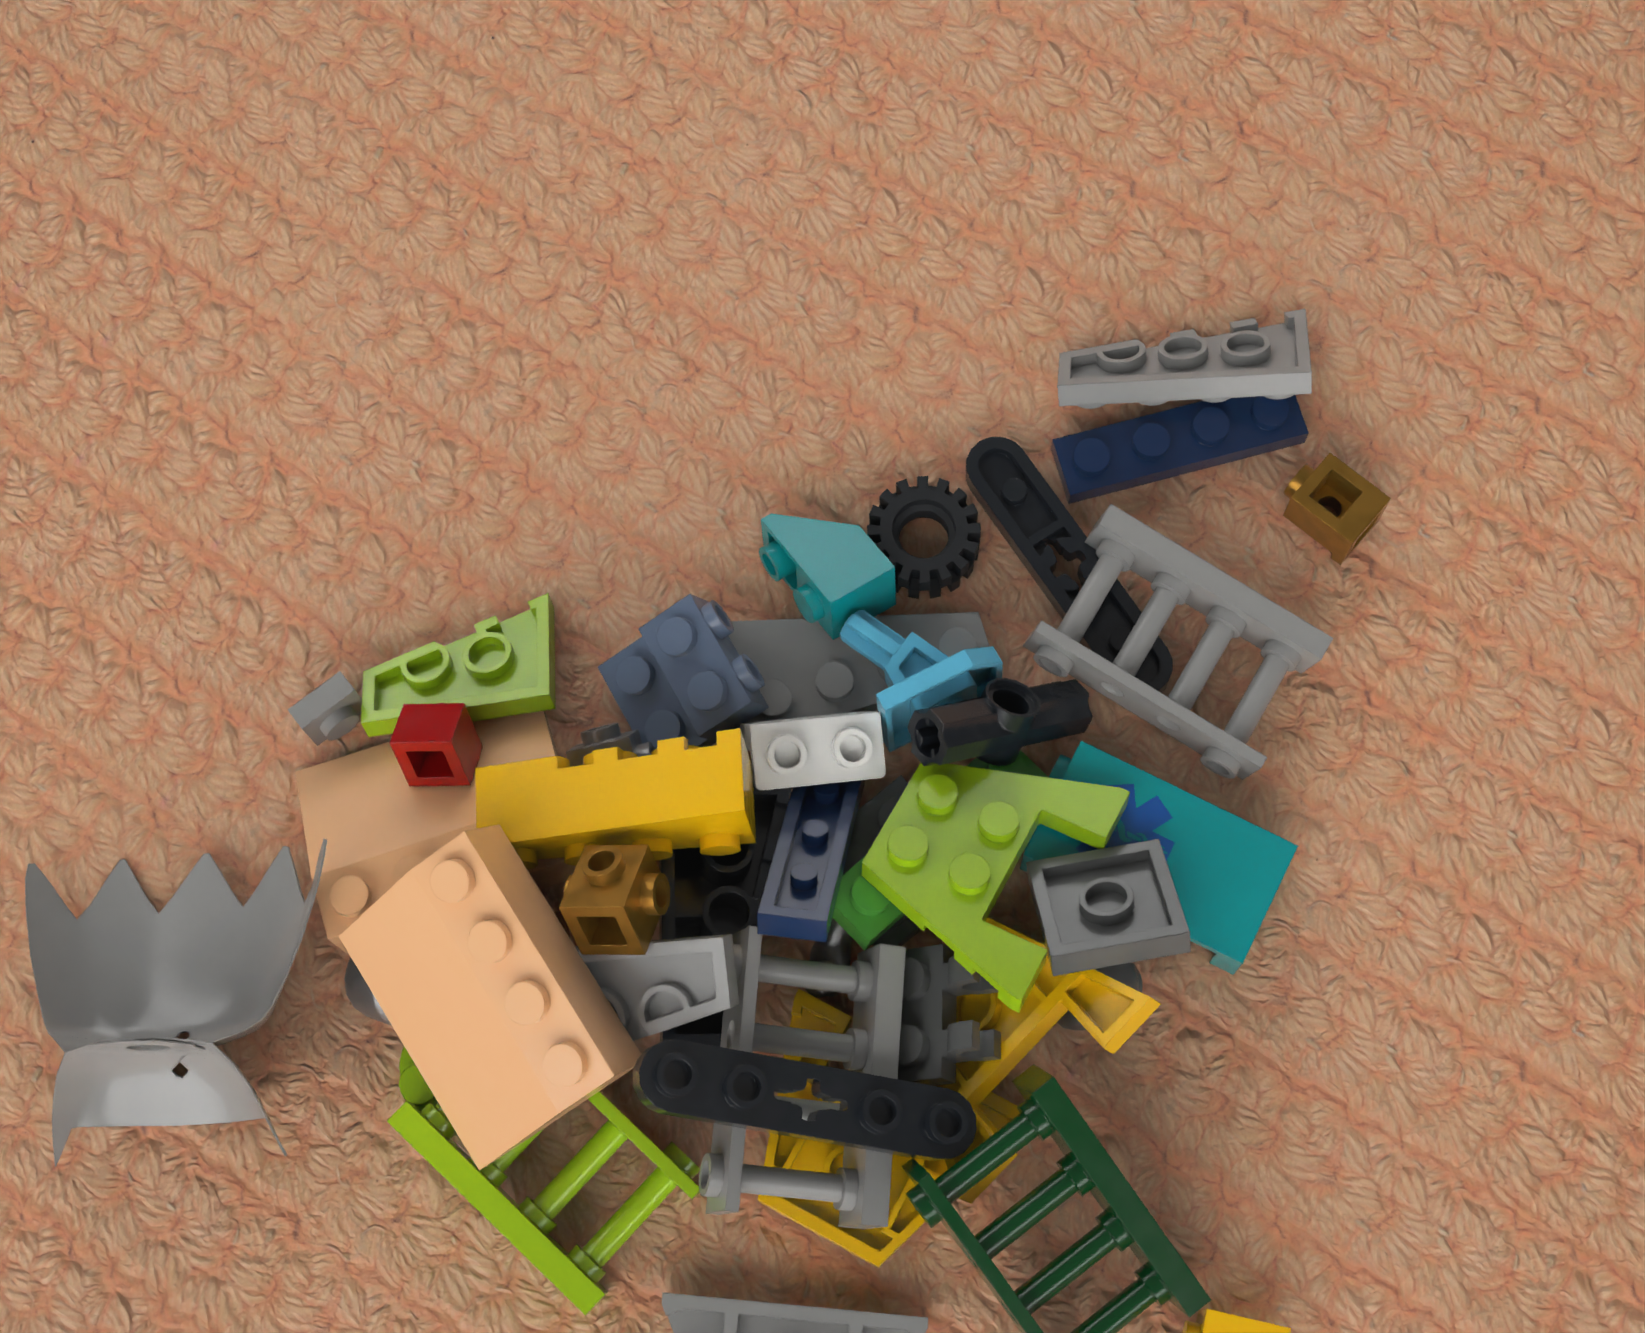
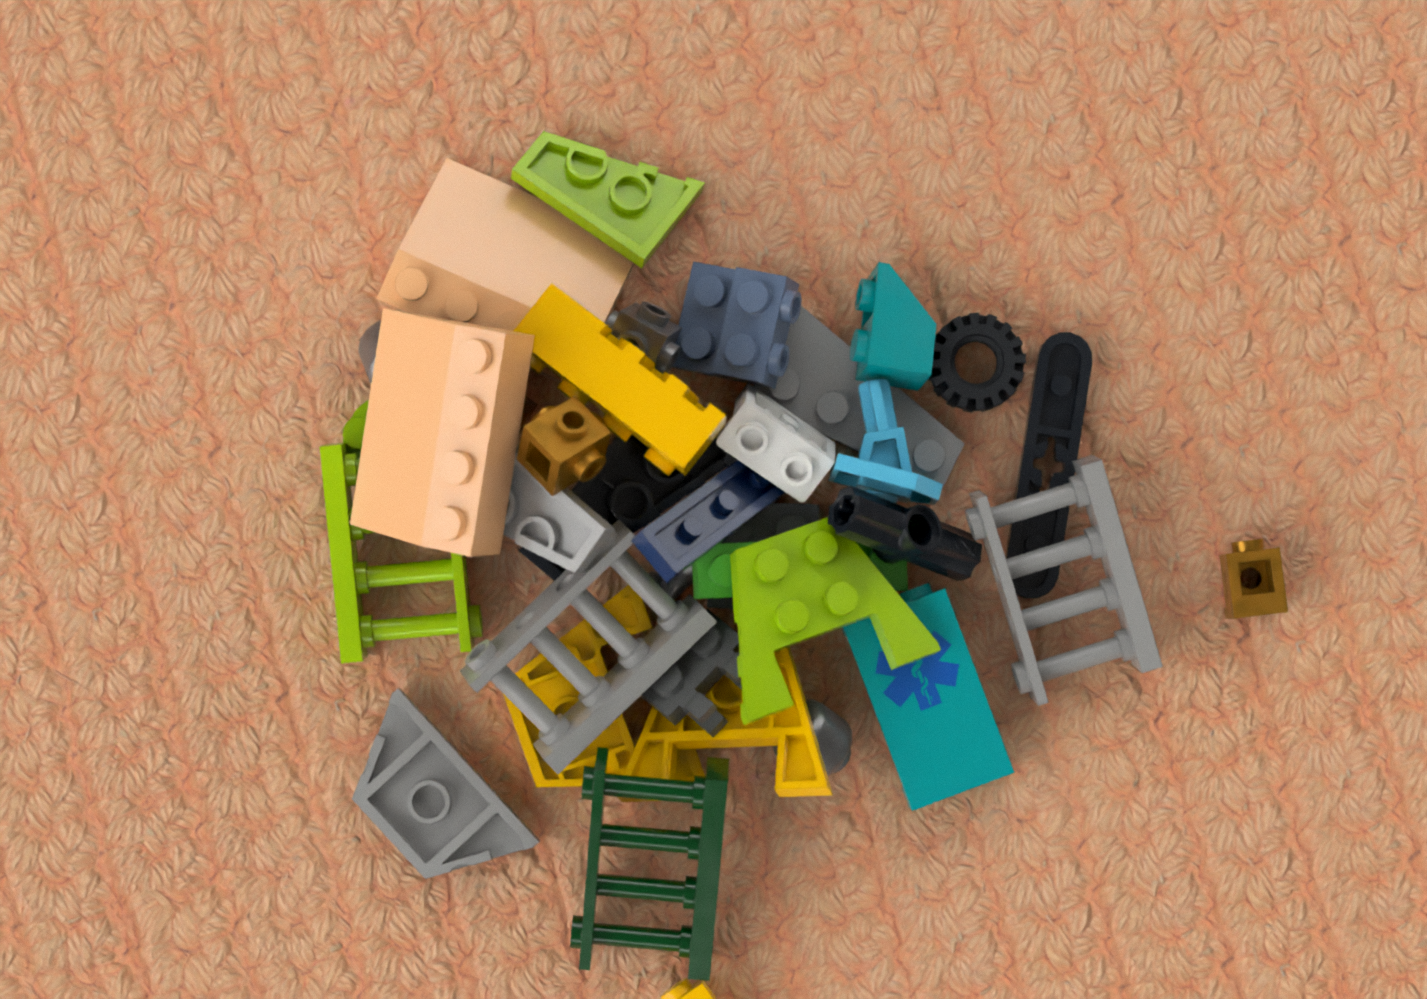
camera: 30 degrees right, 15 degrees up
(135, 979) = (242, 212): light grey piece -> none
(328, 710) = (500, 140): light grey plate -> none
(436, 744) = (546, 230): red plate -> none
(740, 1086) = (540, 625): black piece -> none
(1107, 907) = (857, 708): dark grey plate -> none
(1174, 443) = (1202, 445): dark blue plate -> none
(1187, 367) = (1275, 424): light grey wing -> none

